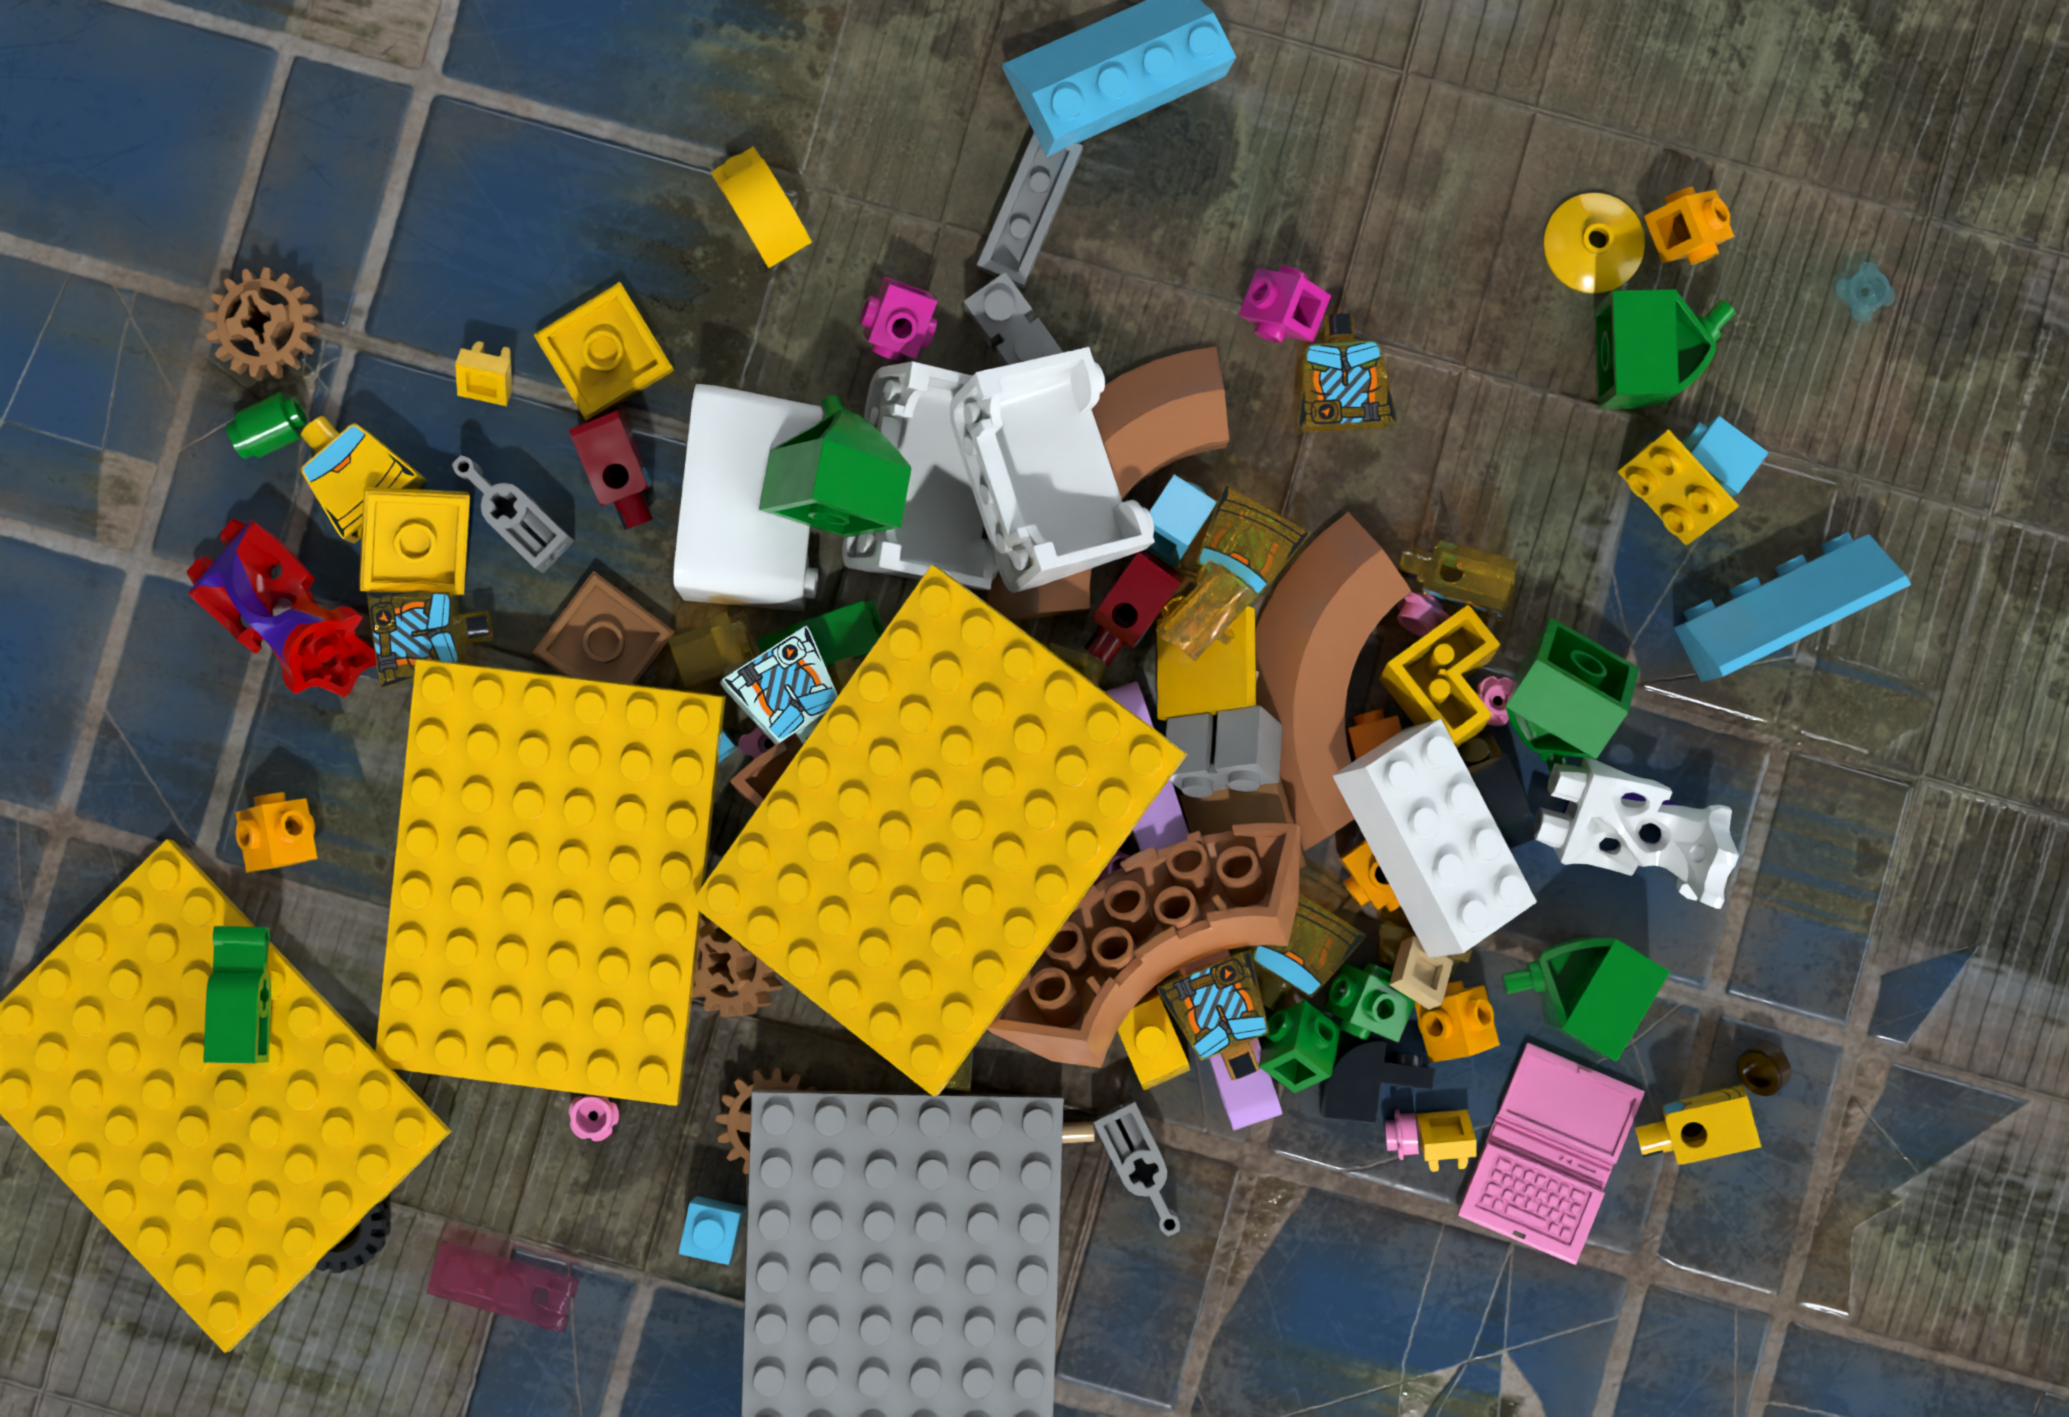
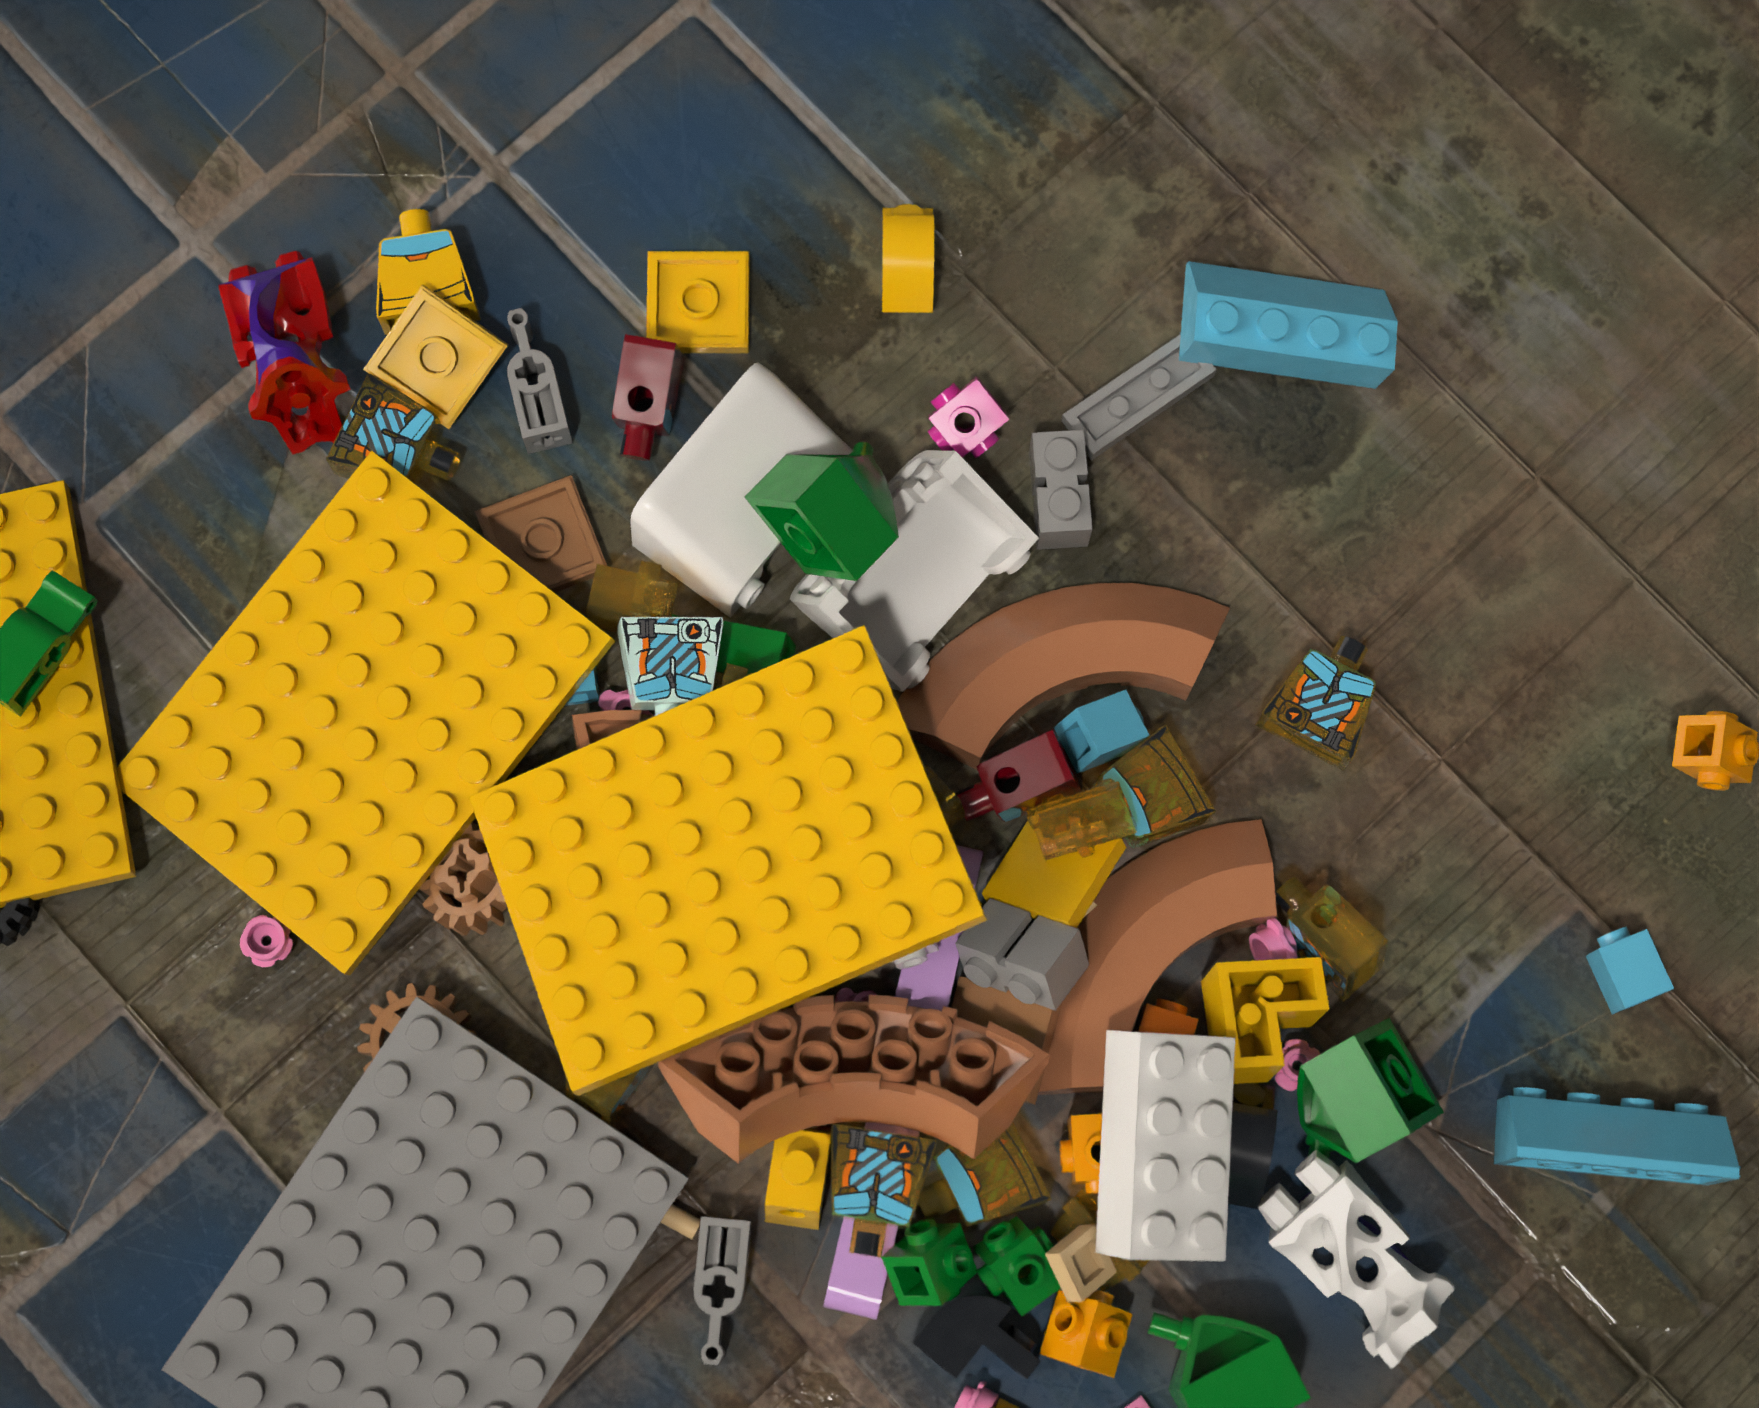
camera: 25 degrees right, 10 degrees down
(266, 426) = (375, 193): green brick -> none
(275, 833) = (157, 528): light orange brick -> none
(283, 318) = (438, 126): medium nougat gear -> none
(484, 375) = (584, 259): yellow tile -> none
(501, 1286) = (88, 1041): clear pink plate -> none
(712, 1230) = (302, 1104): medium azure brick -> none
(1044, 470) = (1014, 610): white windscreen -> none
(1284, 305) = (1311, 604): dark pink brick -> none
(1576, 260) = (1603, 735): yellow dish -> none
(1651, 346) = (1621, 832): green piece -> none
(1677, 488) = (1572, 971): yellow hinge -> none

